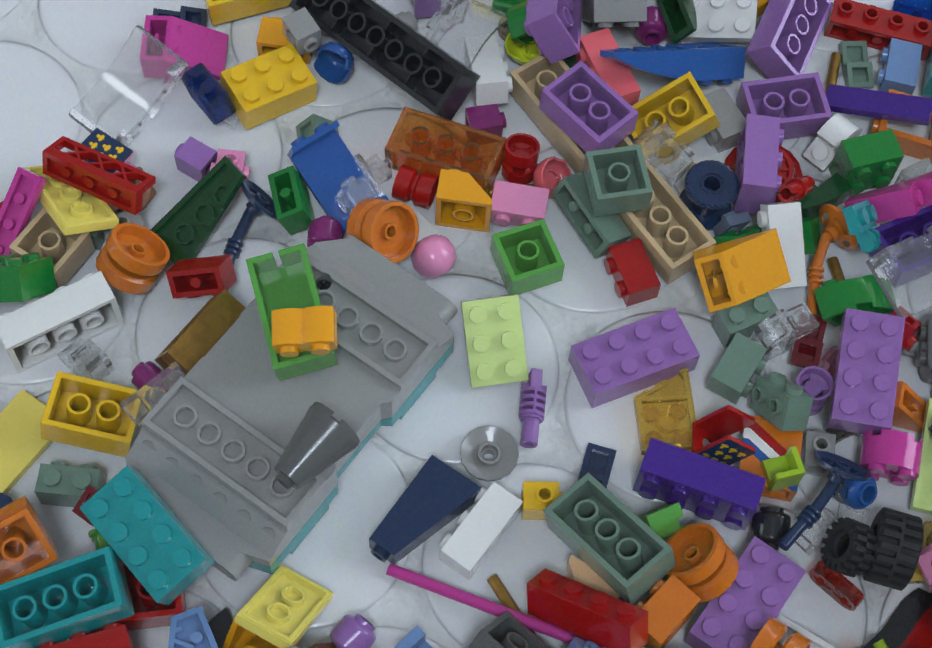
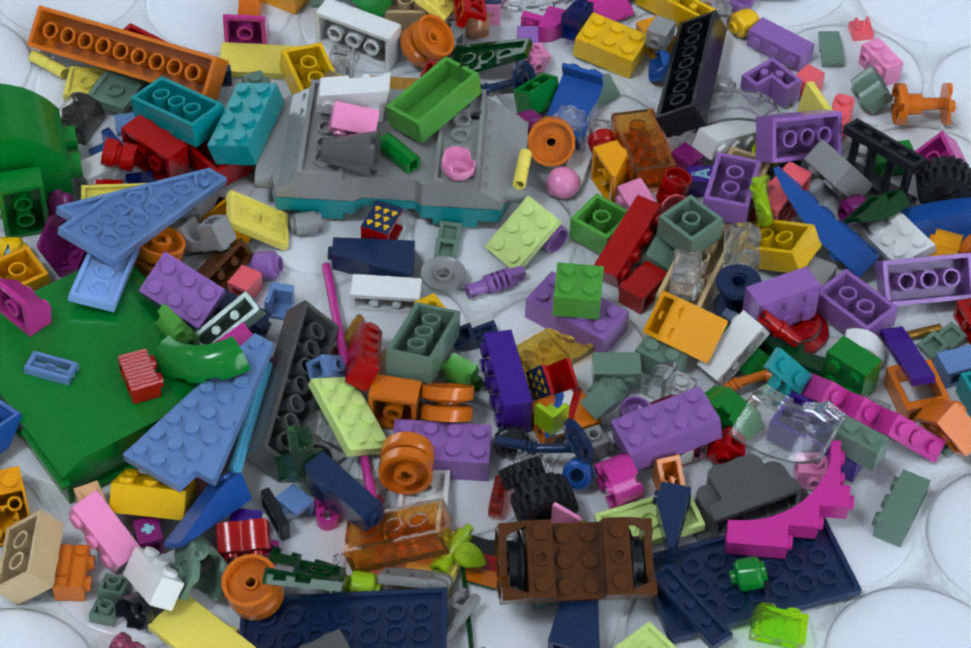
camera: 60 degrees right, 15 degrees down
(186, 122) = (548, 24): none -> dark pink brick
(225, 394) = (364, 92): none -> white wedge
(264, 418) = (351, 119): none -> bright pink brick
(304, 330) = (418, 99): light orange brick -> none
(314, 552) = (306, 222): none -> light grey brick
(339, 396) = (399, 153): none -> green axle
(380, 475) = (382, 222): none -> piece
(408, 348) = (457, 163): none -> bright pink hair
(429, 287) = (522, 168): none -> light yellow piece
(439, 421) = (448, 239): none -> sand green slope
(521, 122) = (700, 179): none -> dark purple brick
(577, 246) = (629, 240): none -> red brick
(630, 91) = (761, 200): none -> lime plant
(636, 338) = (578, 290): none -> bright green brick
(674, 224) = (686, 274): none -> clear brick

